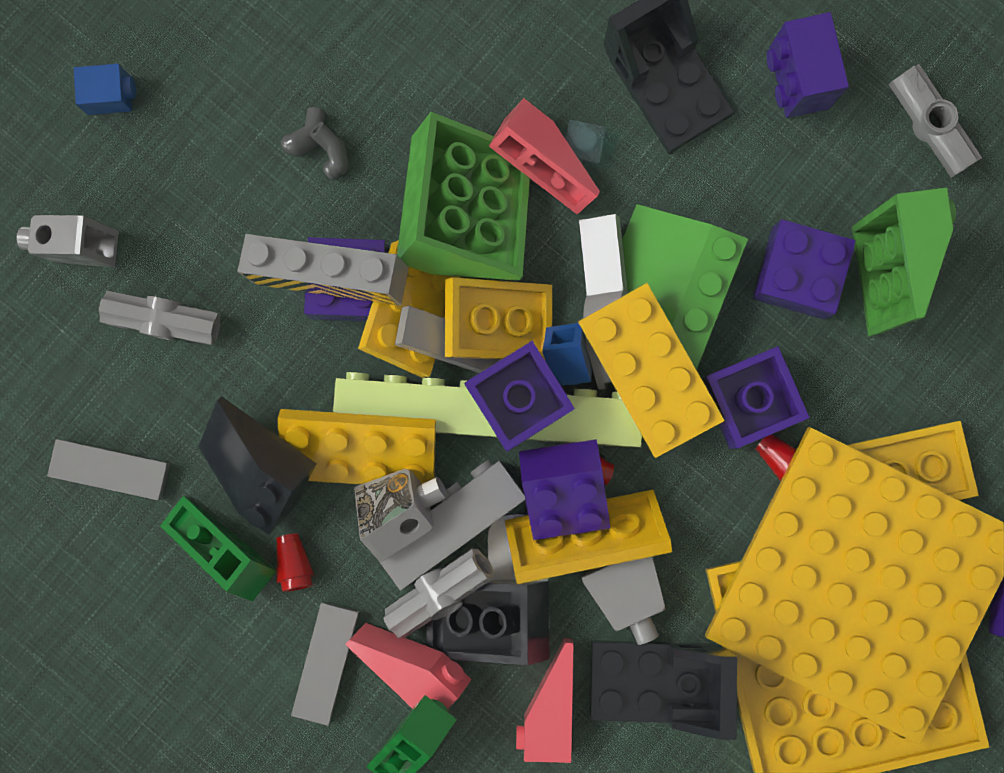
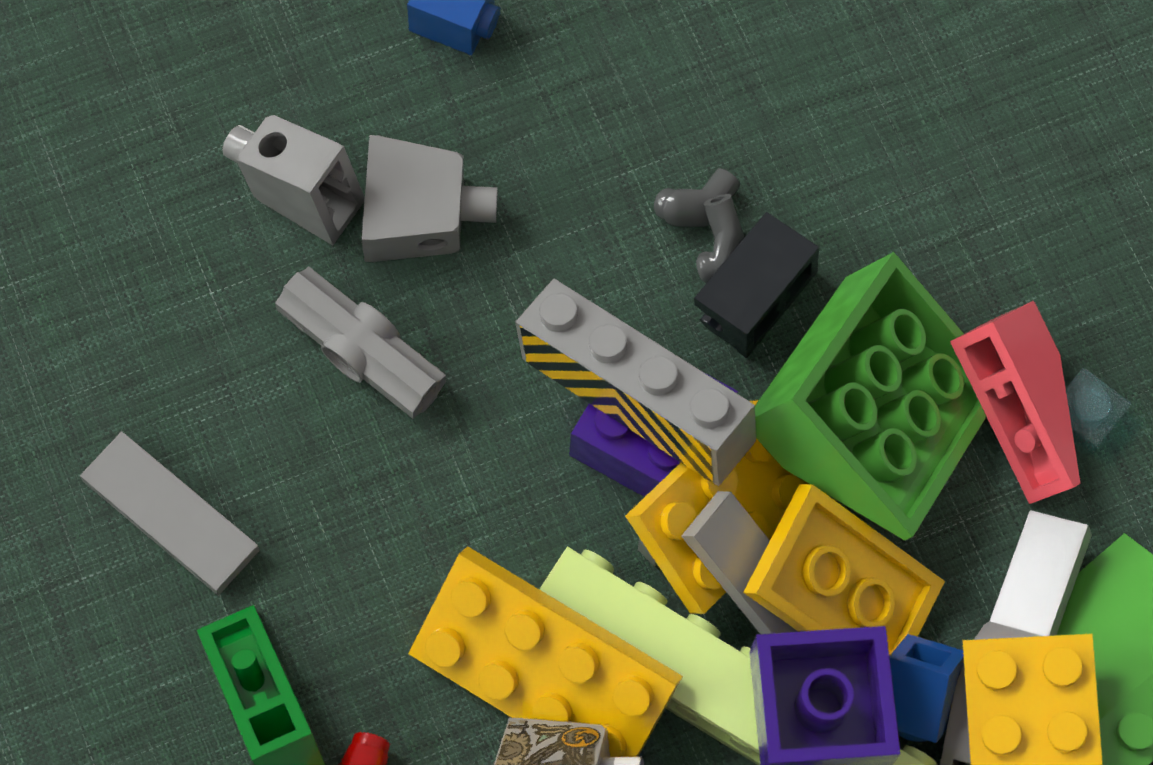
camera: 20 degrees right, 15 degrees down
(147, 218) = (418, 201): none -> light grey torso
(254, 466) = (385, 609): black slope -> none
(364, 166) = (757, 283): none -> black hinge

